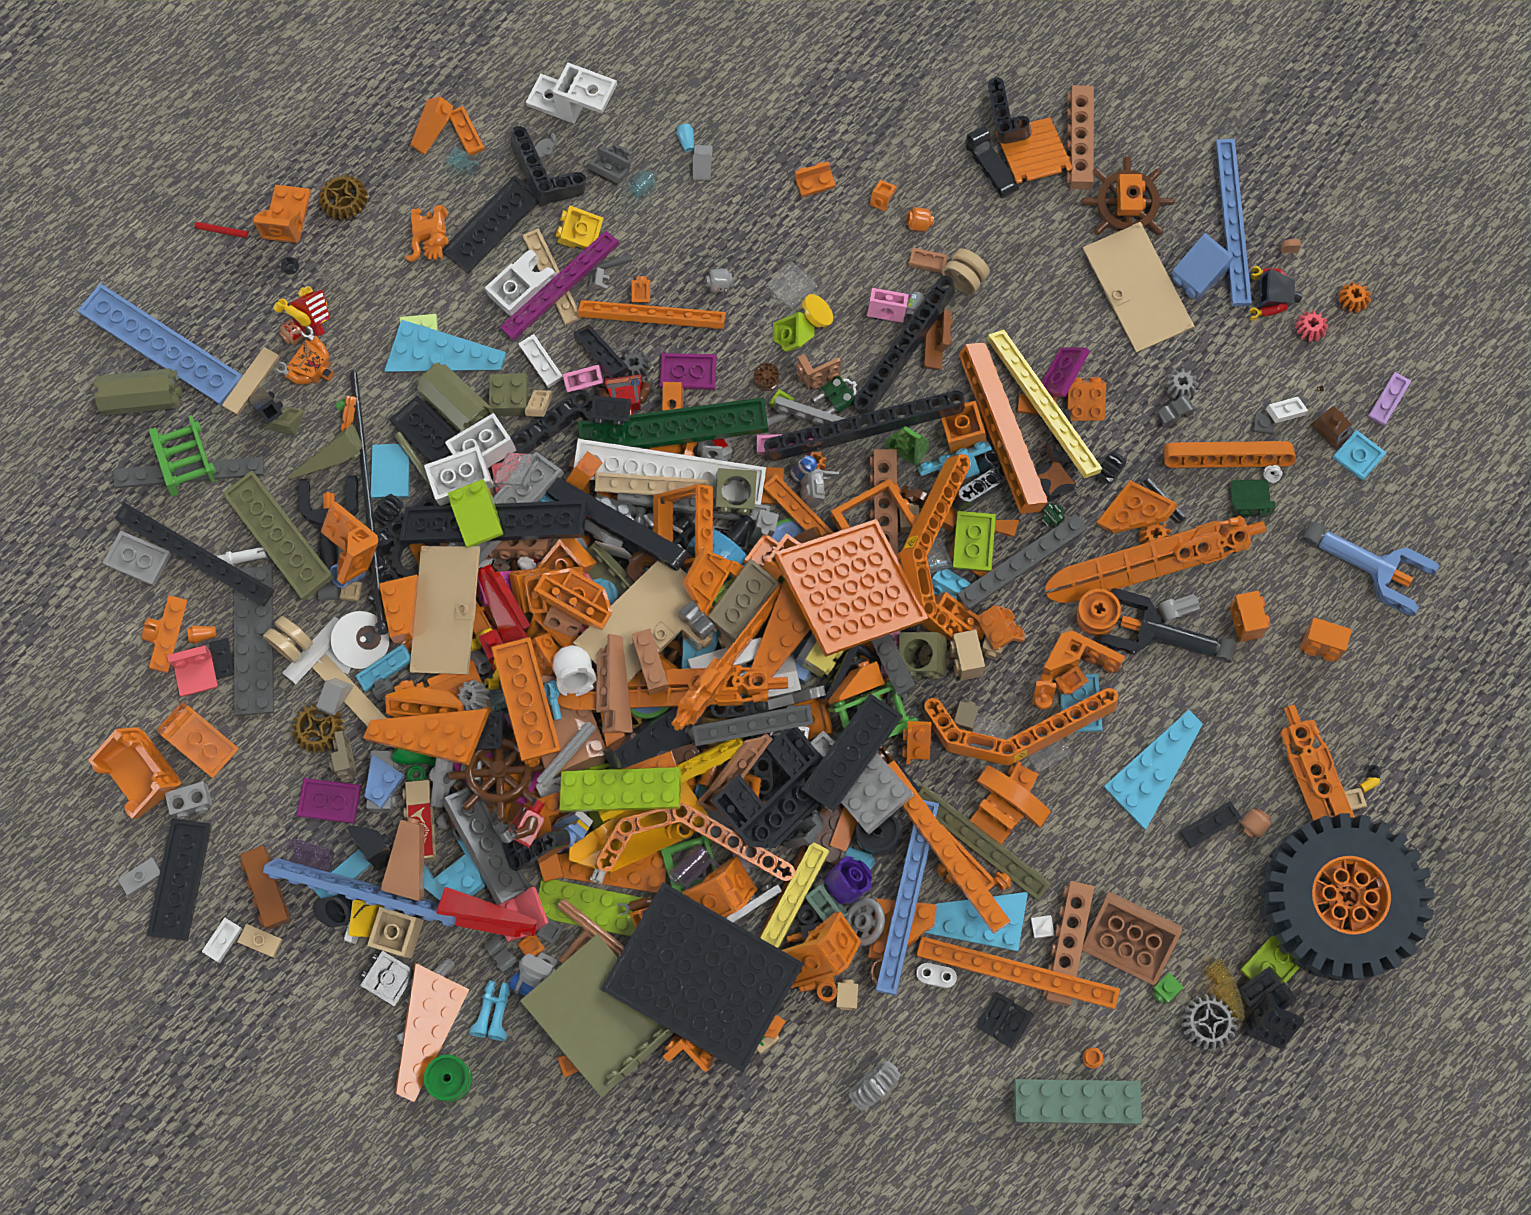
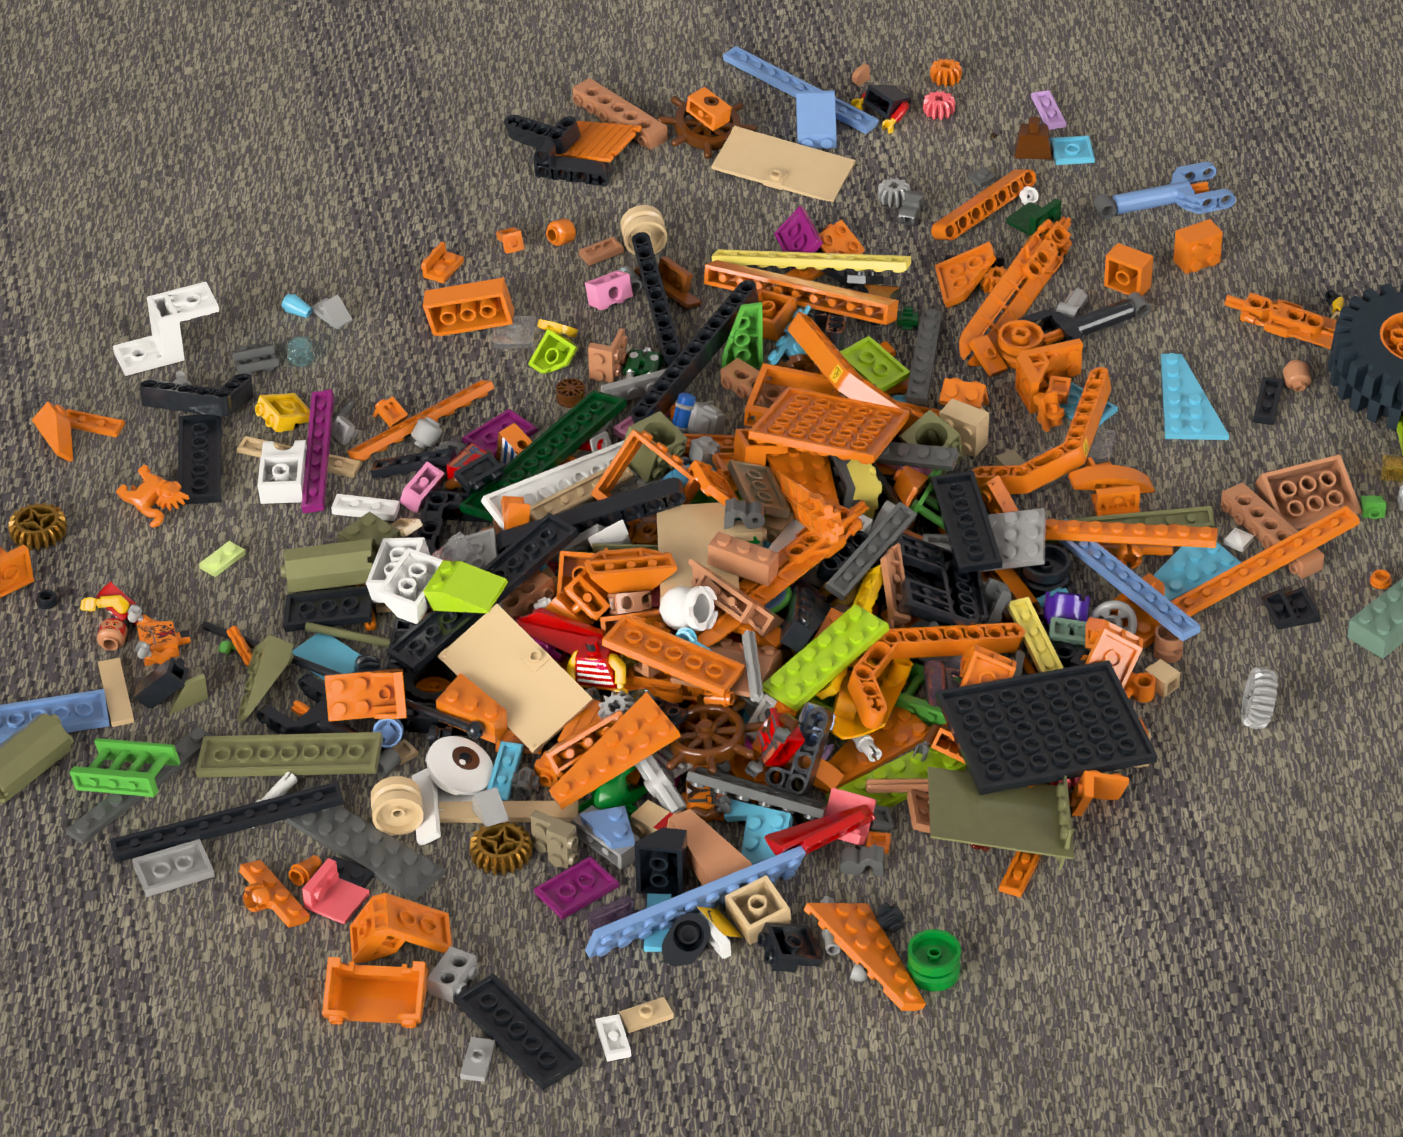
camera: 50 degrees left, 30 degrees down
(266, 890) = (603, 974): dark orange brick -> none
(420, 347) = (259, 562): medium azure wing -> none
(460, 160) = (114, 439): clear light blue plate -> none
(464, 1016) = (890, 917): none -> black gear
(495, 1031) = (924, 905): medium azure piece -> none
(532, 973) = (912, 846): light grey piece -> none
(639, 331) = (426, 433): none -> light grey head
(719, 280) = (449, 365): light grey head -> none
(774, 243) = (468, 307): none -> orange brick
(936, 976) = (1210, 620): white plate -> none
(1065, 601) = (988, 355): none -> orange plate
(1111, 467) = (916, 269): black gear -> none
(1286, 409) = (988, 156): white plate -> none

